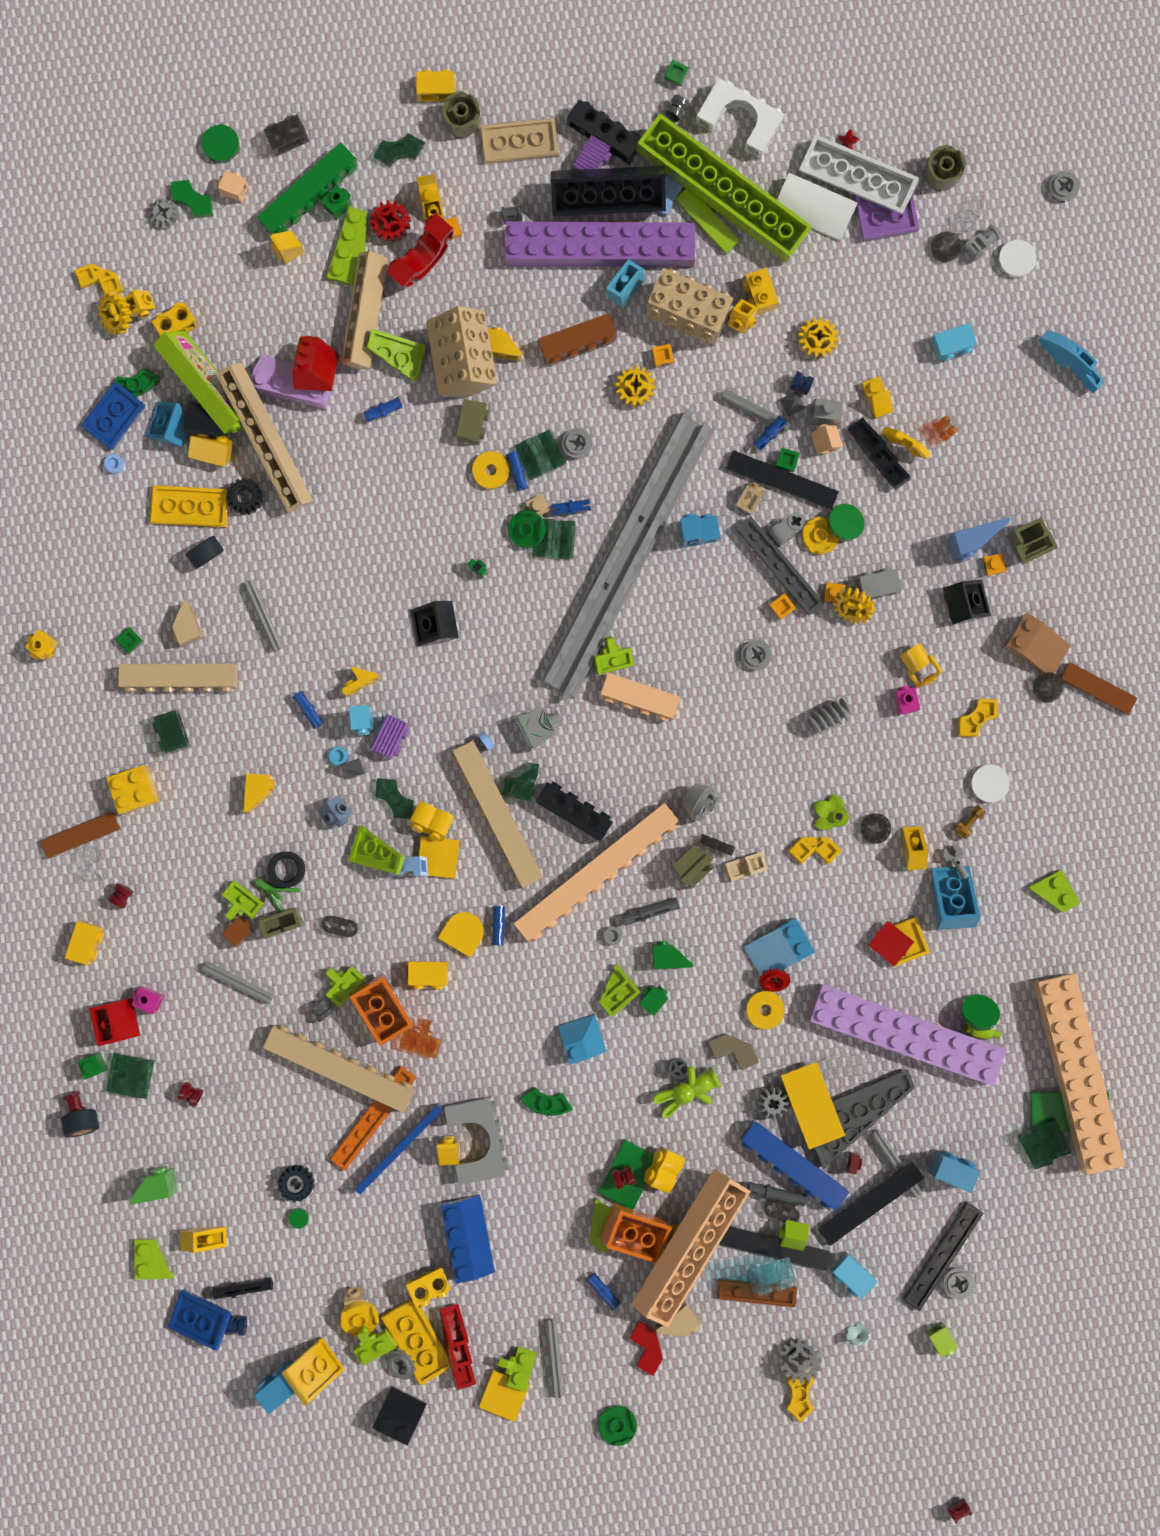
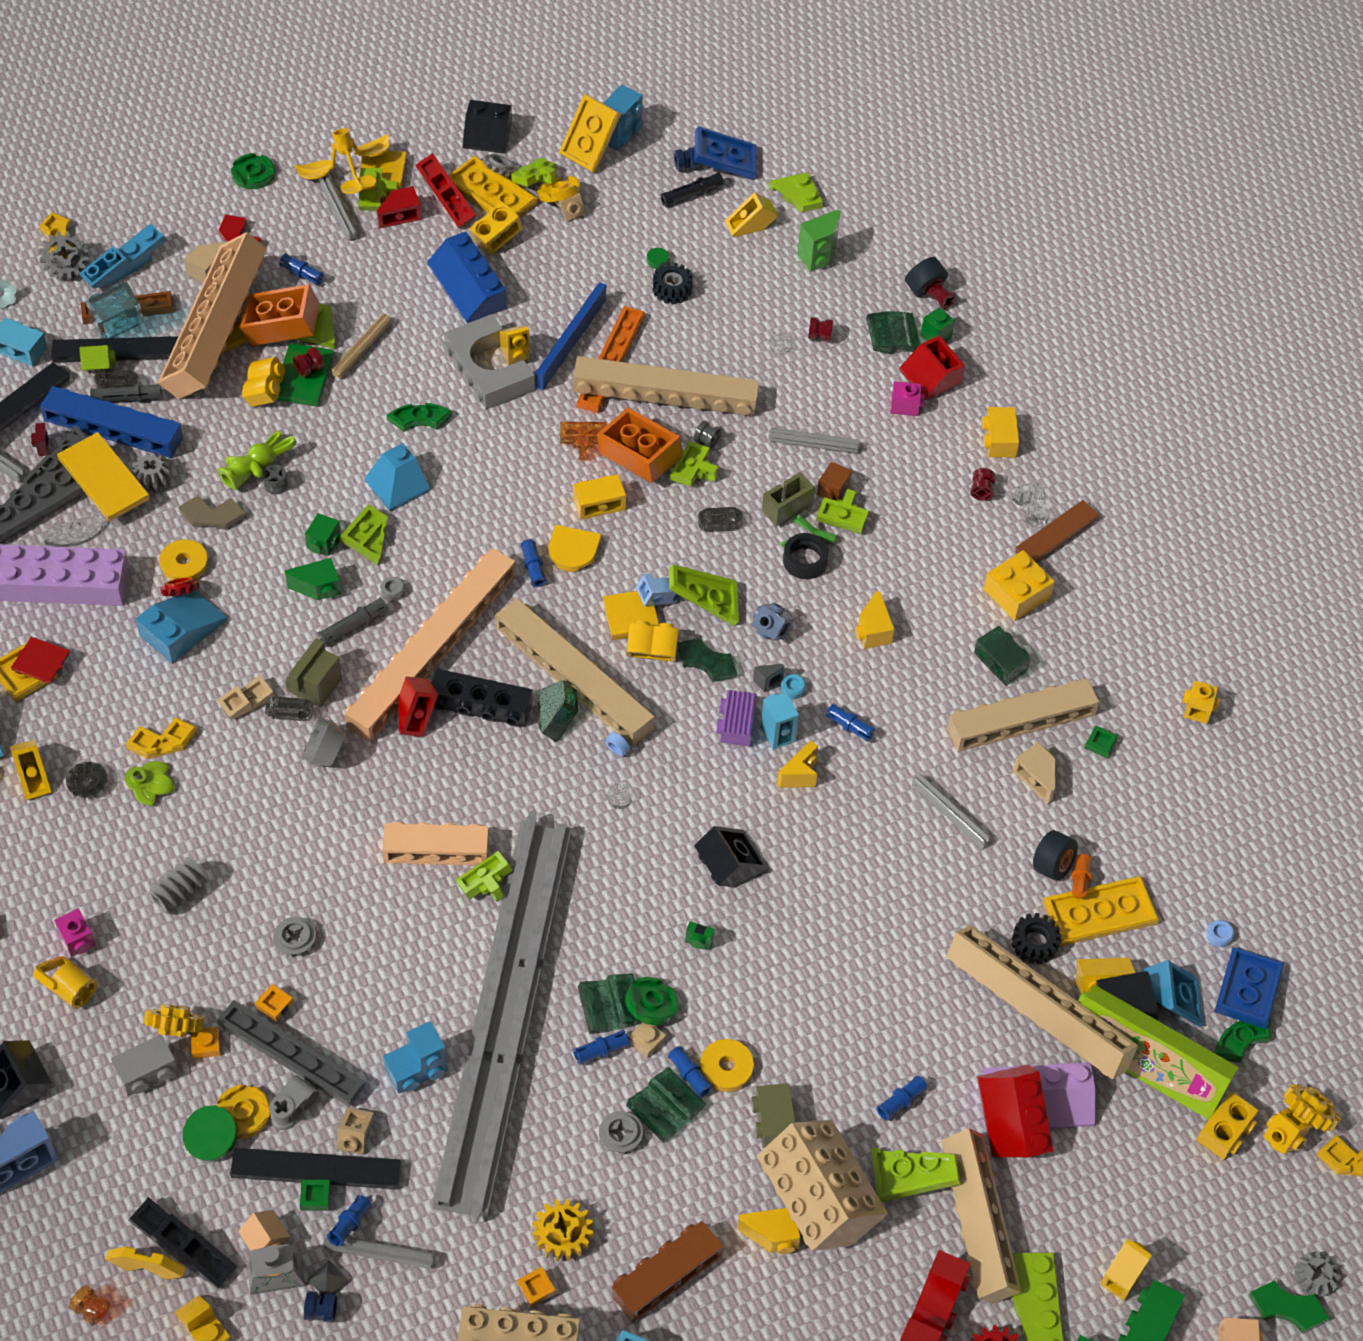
camera: 165 degrees right, 30 degrees down
(192, 532) = (1081, 875): none -> orange axle
(501, 1339) = (399, 208): none -> red slope
(537, 727) = (558, 775): light grey torso -> none
(561, 1409) = (343, 144): none -> yellow plant
(574, 1191) = (361, 346): none -> tan axle
(624, 814) = (415, 705): none -> red slope
(750, 1345) = (121, 262): none -> dark azure slope

